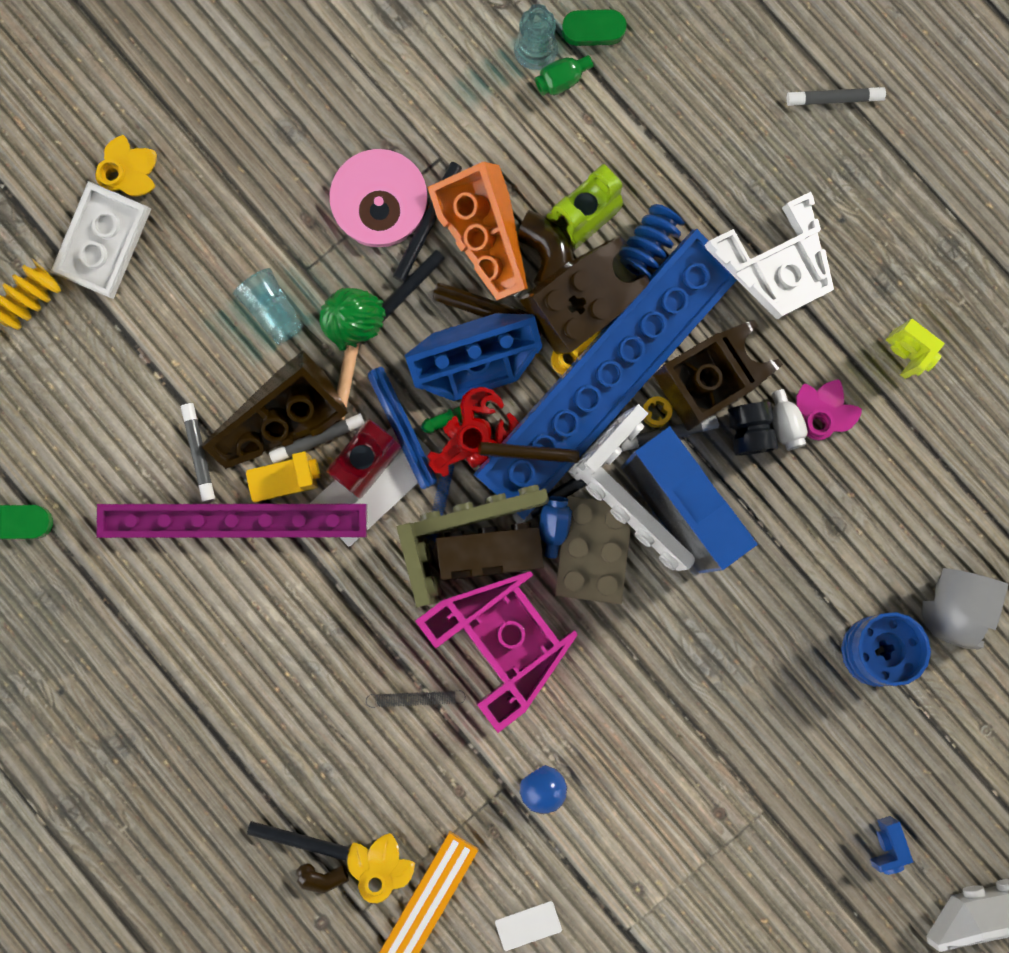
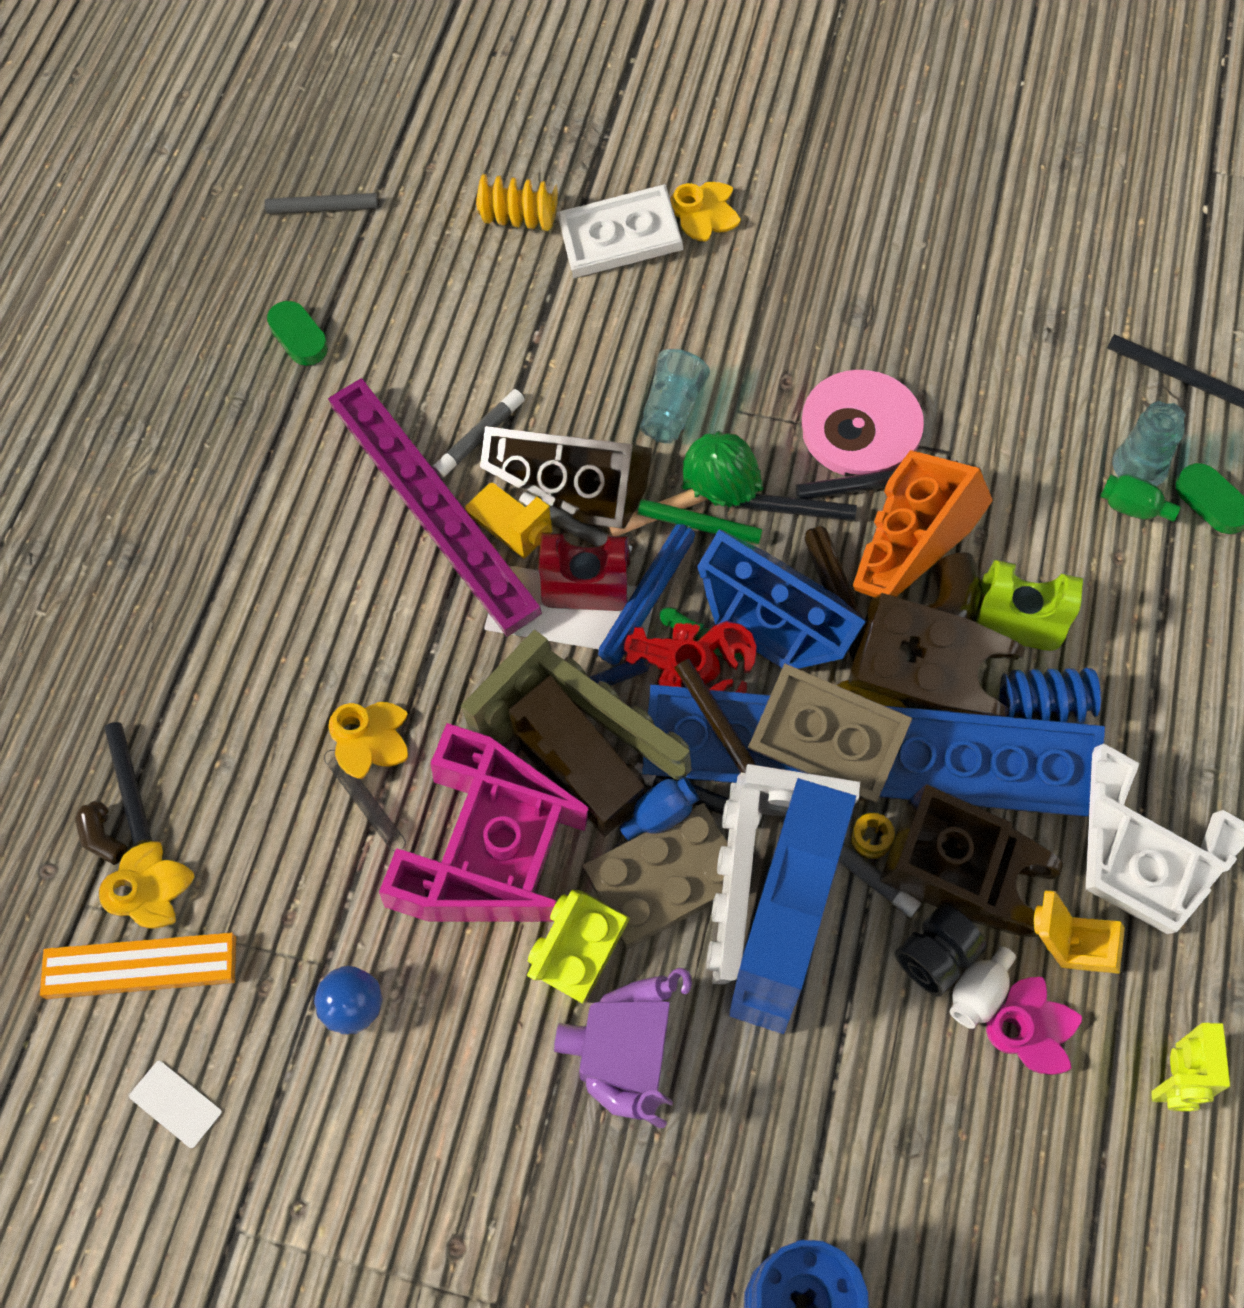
camera: 60 degrees right, 20 degrees down
(375, 358) = (698, 521): none -> green bar
(380, 668) = (373, 741): none -> yellow plate
(587, 393) = (829, 731): none -> dark tan plate
(605, 632) = (577, 944): none -> neon yellow bracket
(682, 647) = (625, 1046): none -> medium lavender torso
(801, 346) = (1078, 941): none -> yellow bracket

